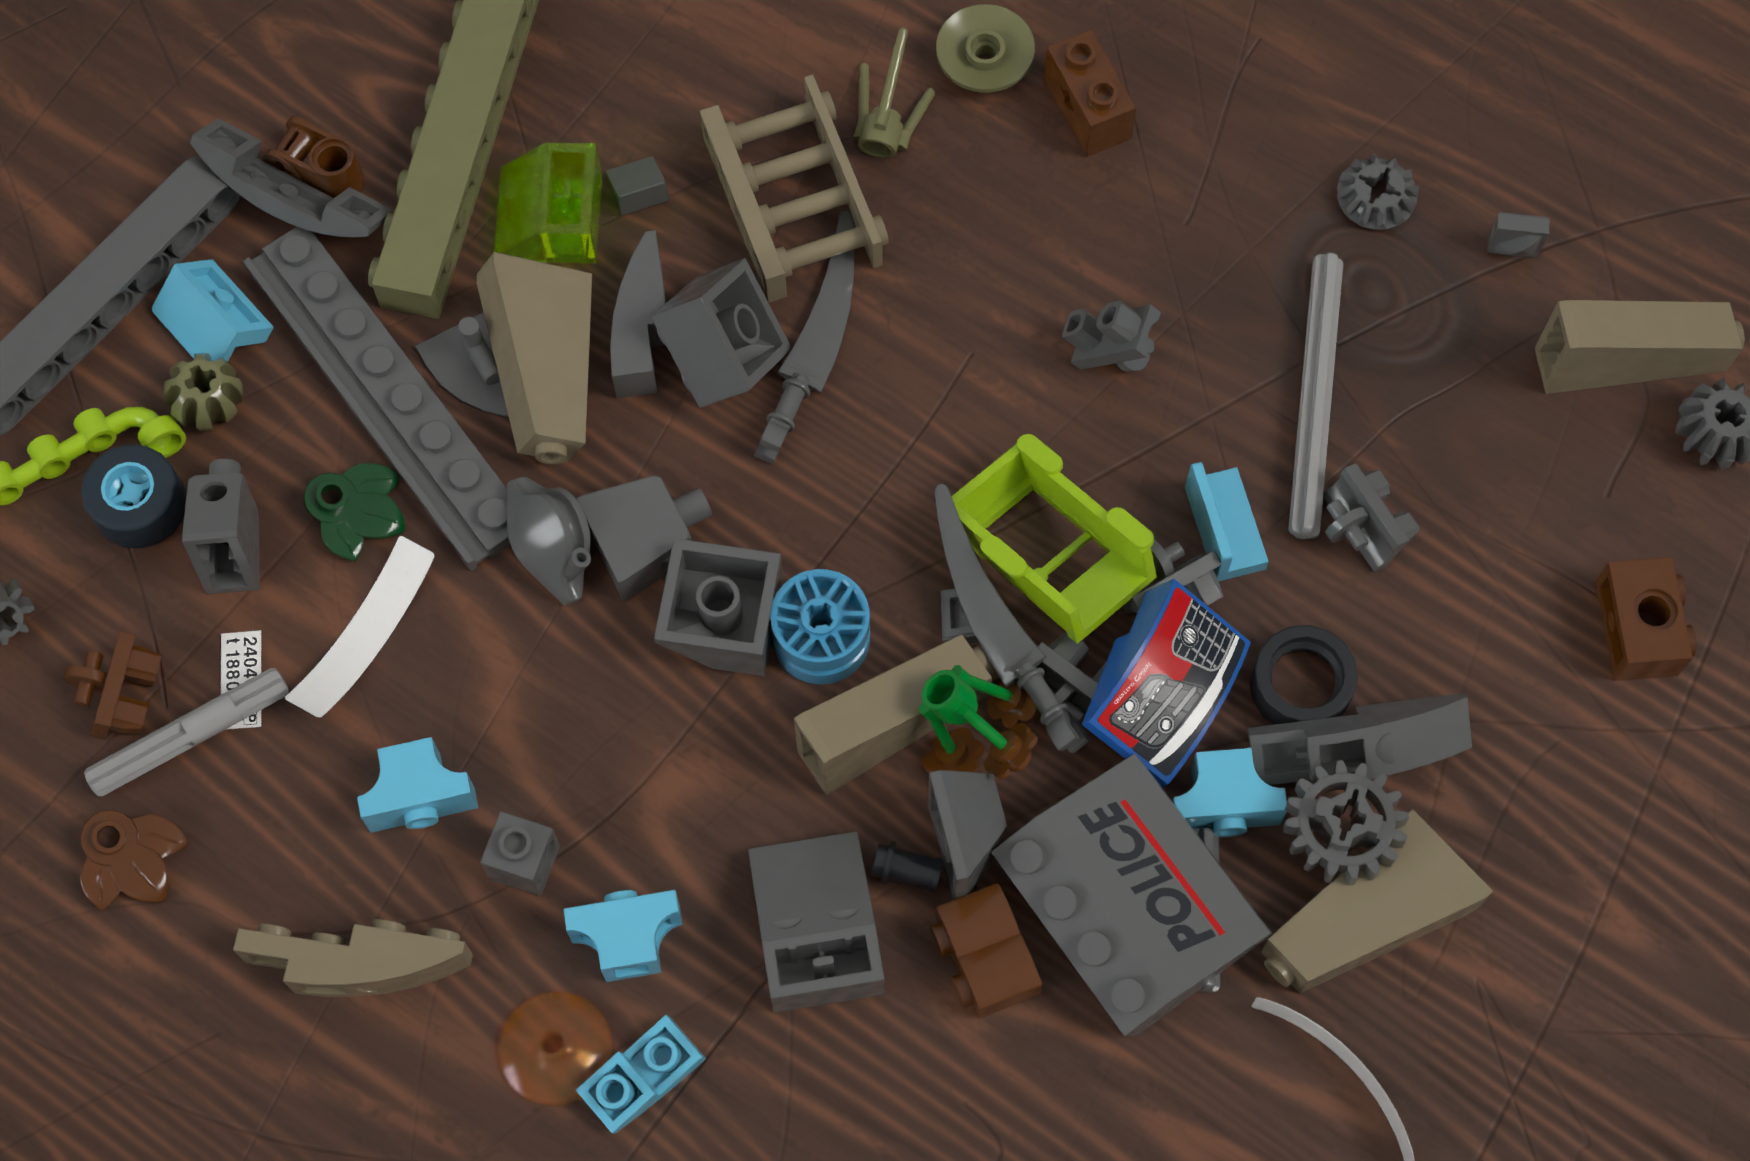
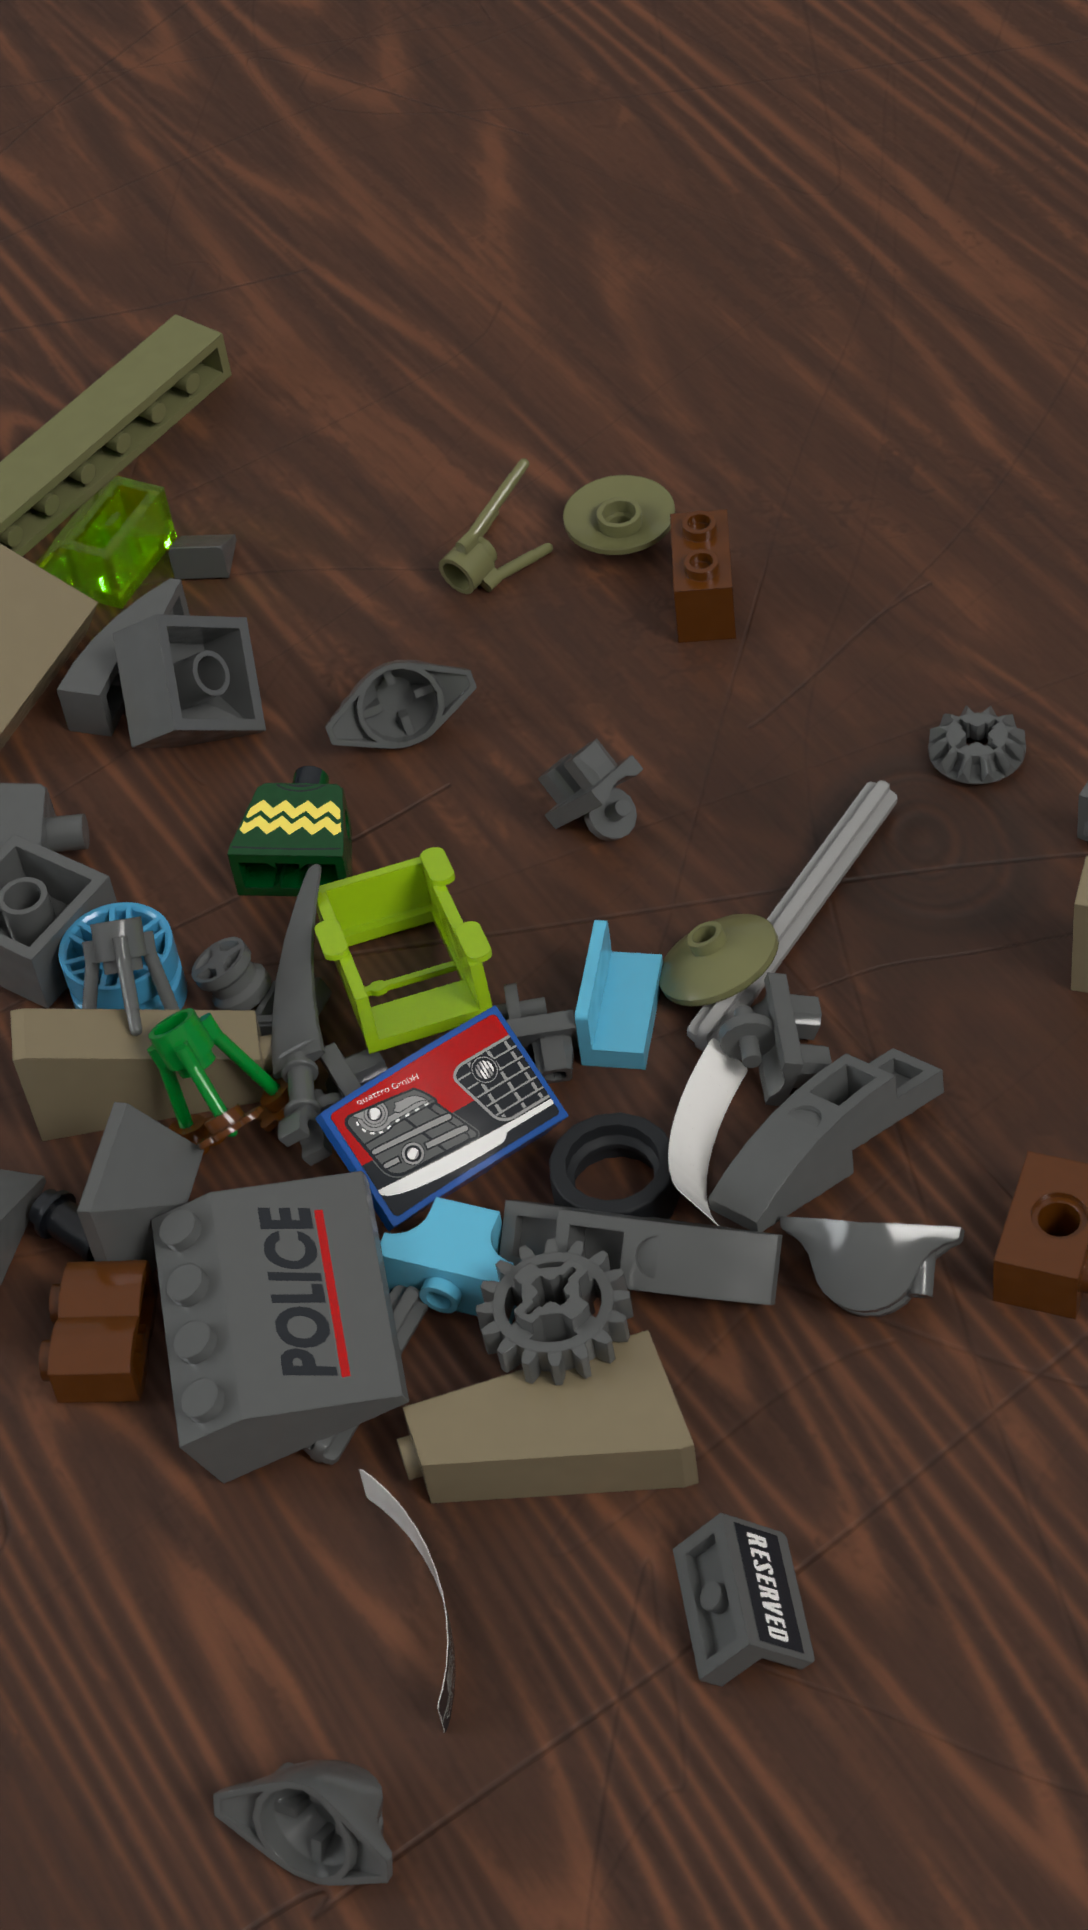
camera: 30 degrees right, 20 degrees down
(758, 222) = (300, 567): dark tan fence -> none
(815, 348) = (278, 740): dark grey sword -> none
(851, 630) = (120, 949): none -> dark grey plant
(890, 451) = (290, 831): none -> dark green torso
(899, 605) = (231, 976): none -> dark grey wheel
(903, 294) = (399, 704): none -> dark grey hat
(1295, 473) = (718, 959): none -> olive dish
(1335, 595) = (699, 1120): none -> white sticker
(1446, 595) = (812, 1135): none -> dark grey slope
(1534, 690) = (872, 1265): none -> dark grey hat
(1566, 992) = (741, 1599): none -> dark grey panel

